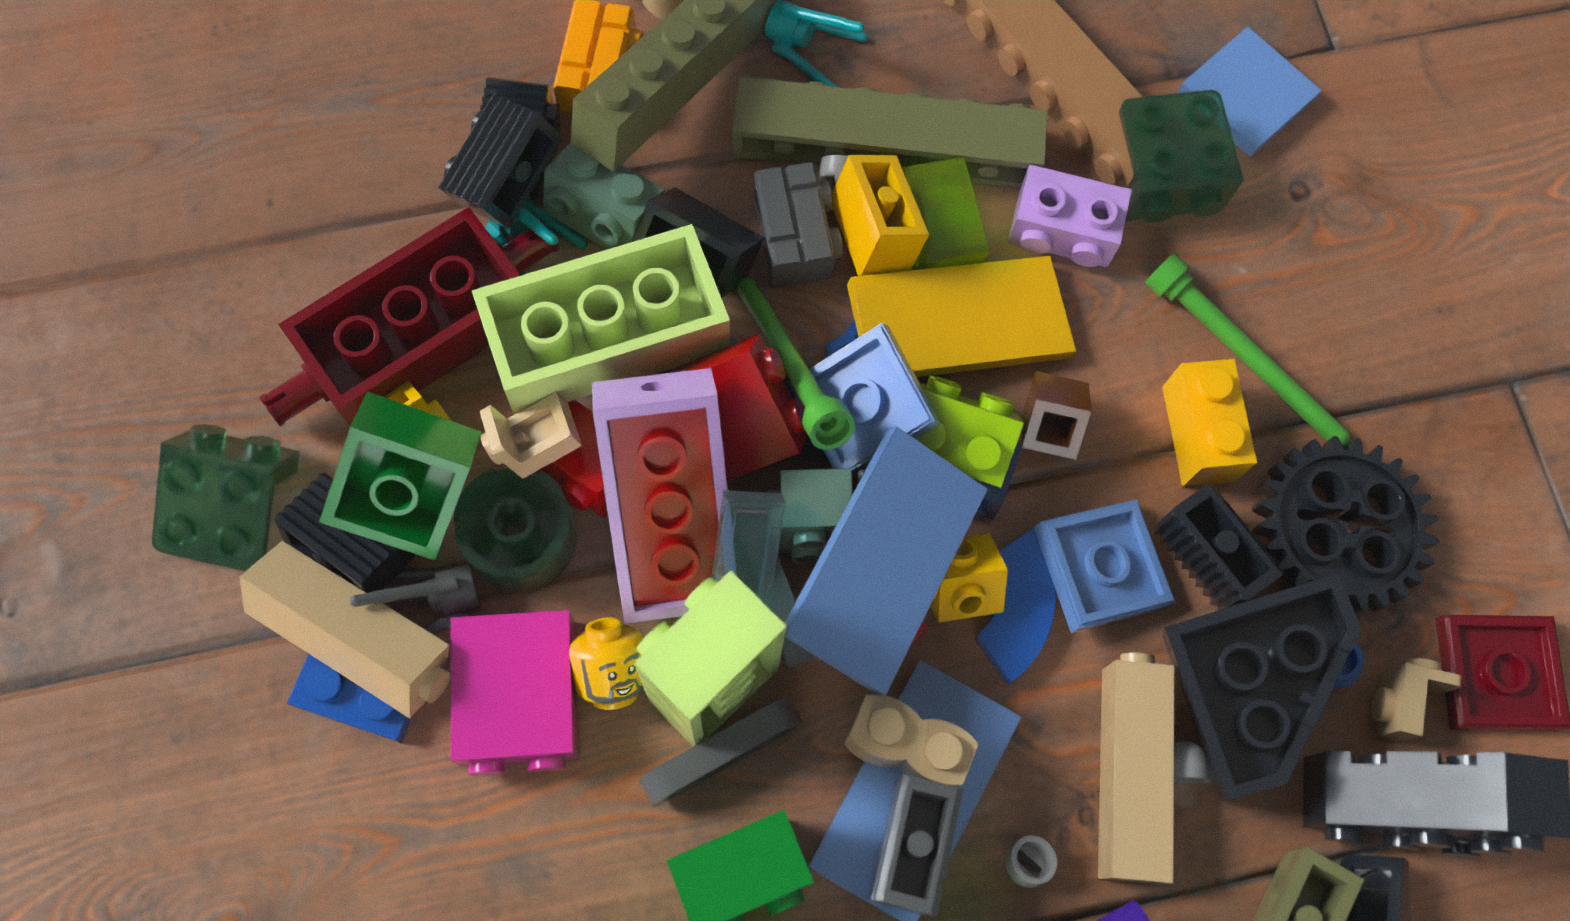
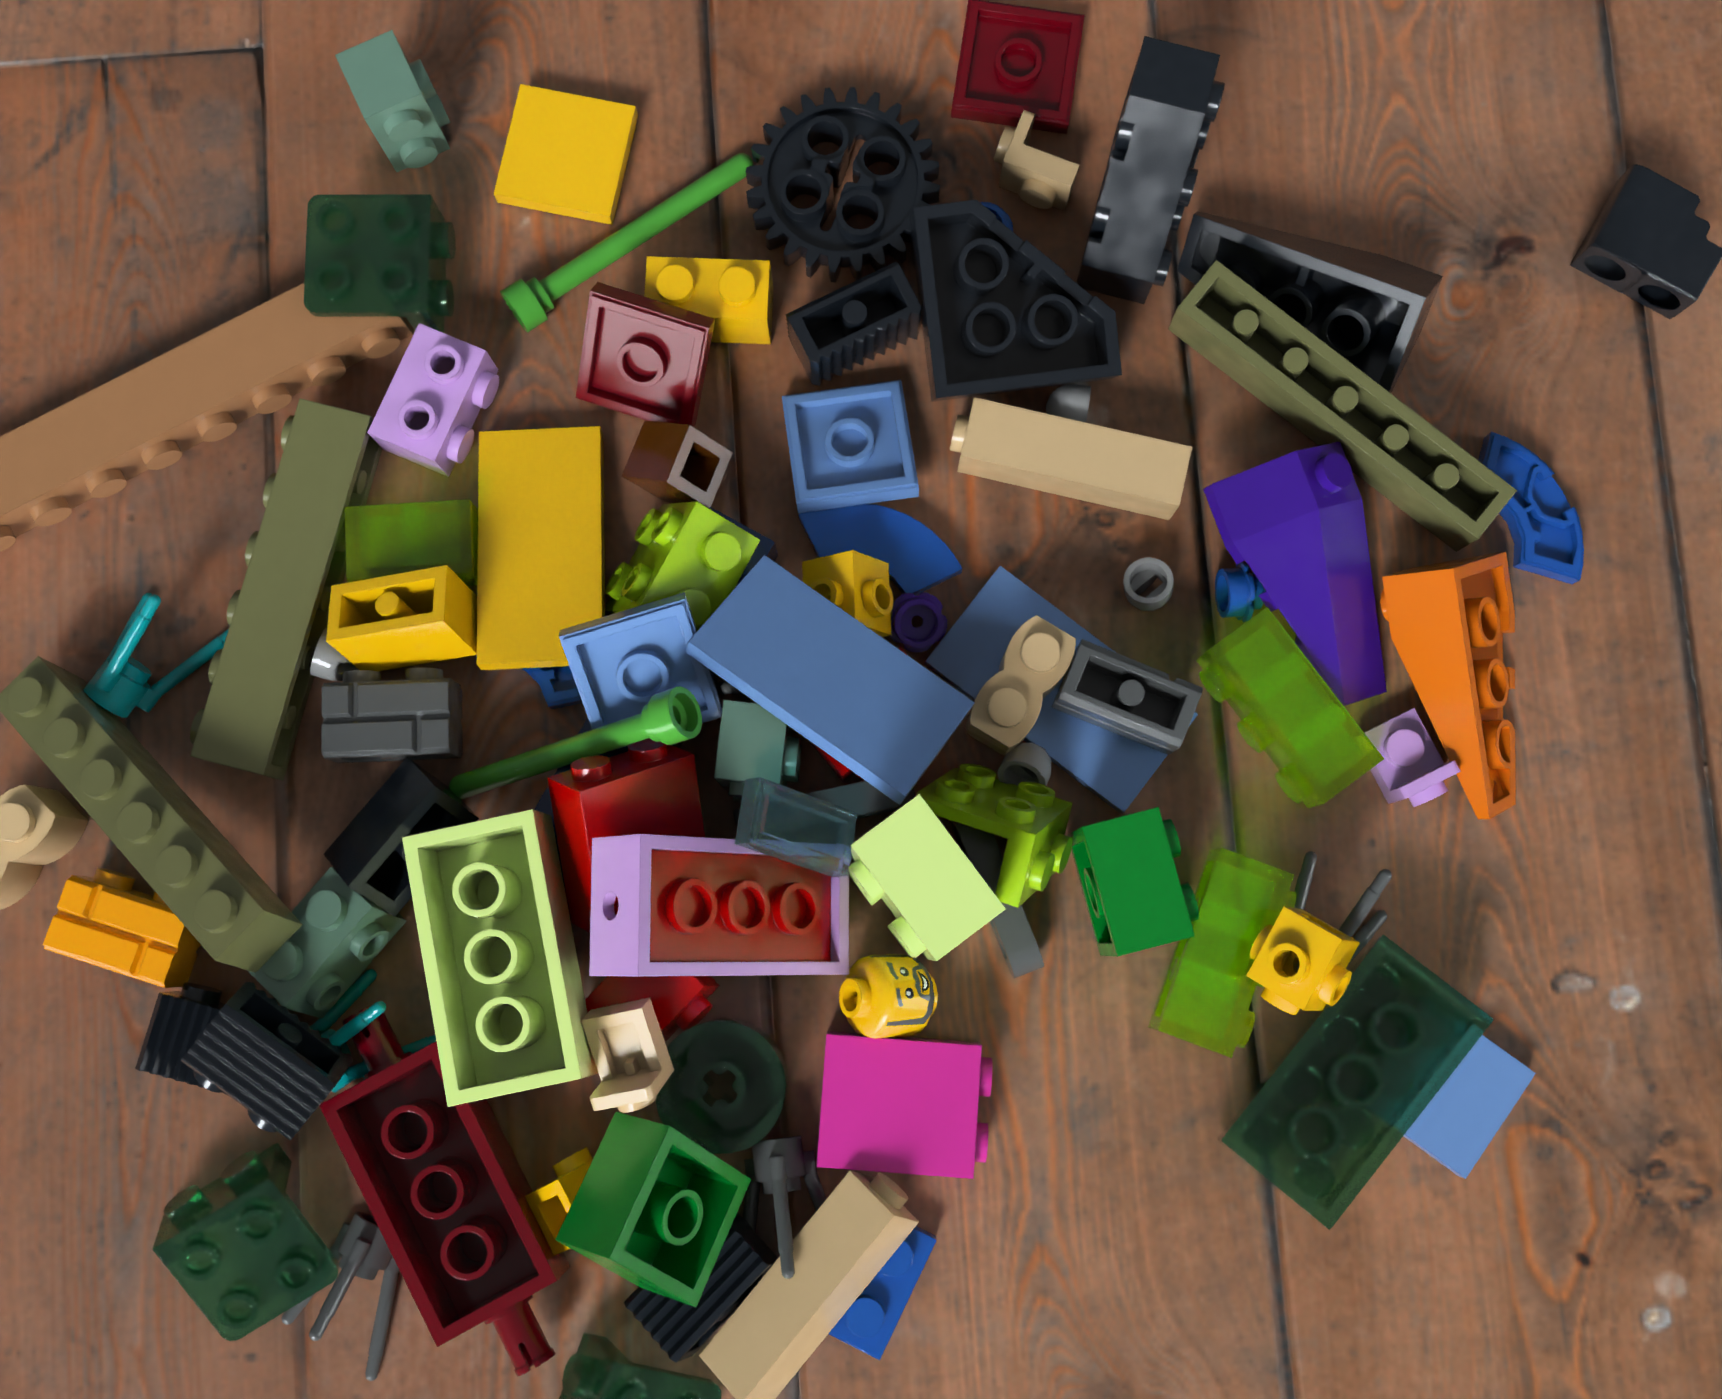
camera: 75 degrees left, 10 degrees up
(349, 257) = (361, 1254): none -> dark grey plant
(354, 178) = (244, 1245): none -> clear green bracket
(785, 763) = (1022, 813): none -> lime bracket
(834, 766) = (1025, 764): none -> light grey hinge
(939, 647) = (933, 625): none -> dark purple plate
(1144, 373) = (643, 356): none -> dark red tile
(1257, 89) = (301, 152): medium blue tile -> none
(1309, 291) = (566, 154): none -> yellow tile
(1316, 142) = (396, 101): none -> sand green brick

